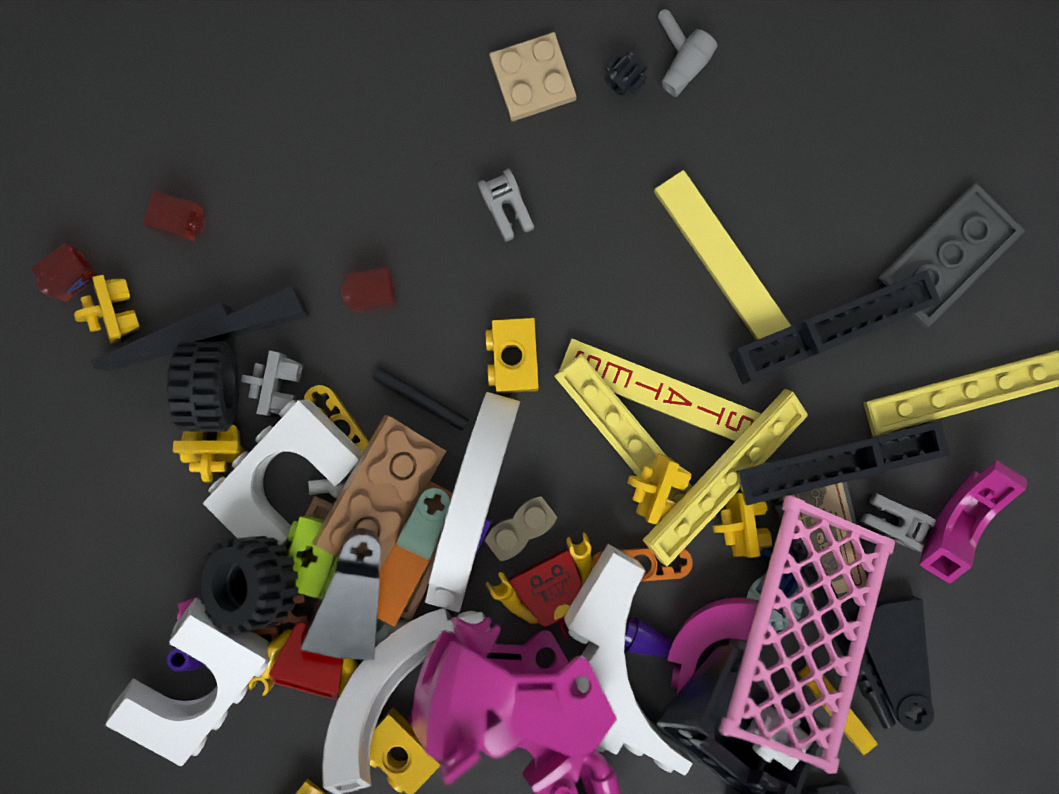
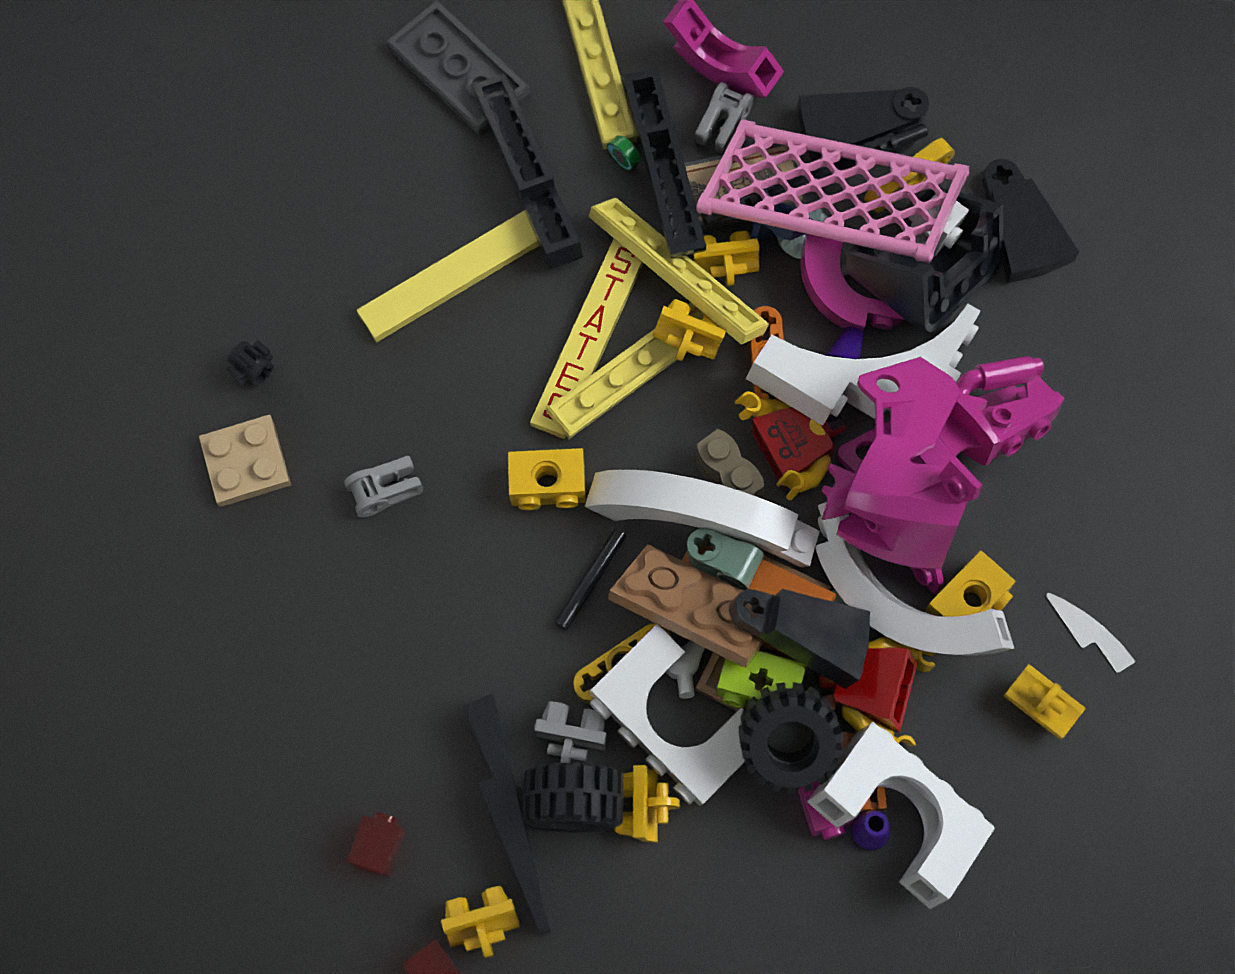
camera: 85 degrees left, 15 degrees down
(369, 290) = (470, 628): clear red brick -> none
(691, 56) = (236, 299): light grey piece -> none
(856, 423) = (624, 152): none -> green tile

